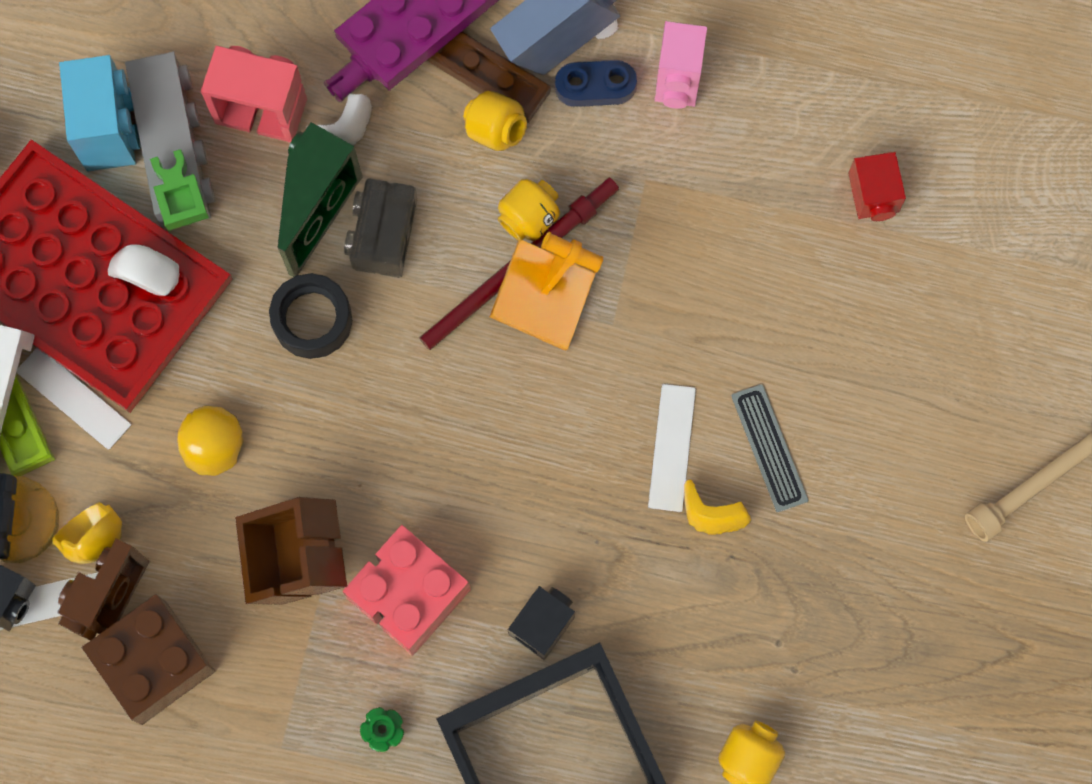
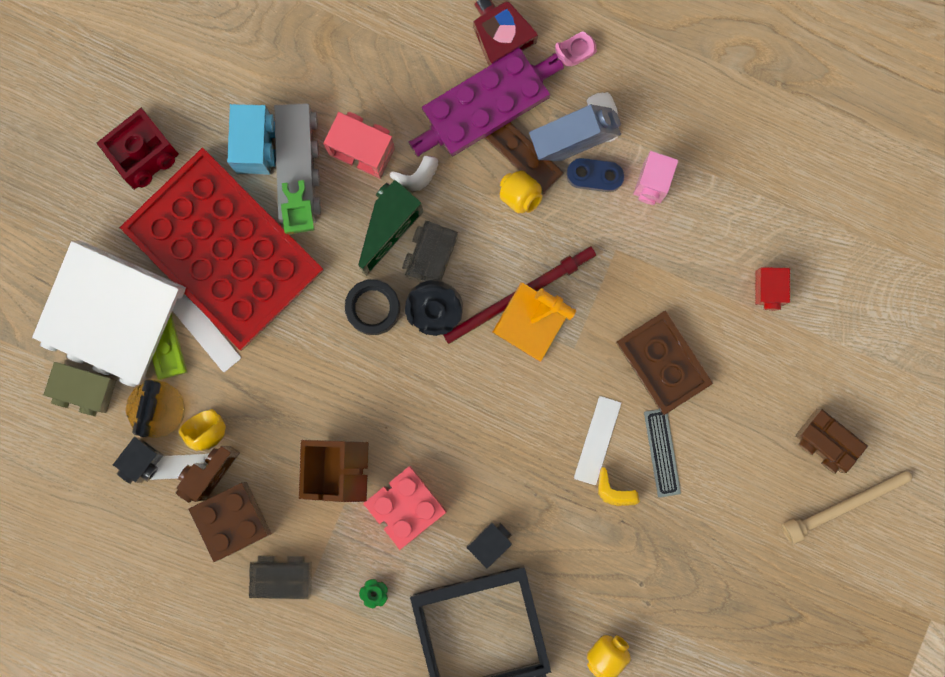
camera: 10 degrees right, 10 degrees up
(145, 269) = (266, 257): white hair -> none
(210, 440) = (292, 379): yellow hair -> none
(237, 731) = (280, 578): none -> clear smoke brick
(399, 298) = (434, 307): none -> black tile
(528, 209) = (532, 260): yellow head -> none
(745, 318) = (664, 363): none -> reddish brown plate
(1008, 384) = (830, 441): none -> reddish brown brick

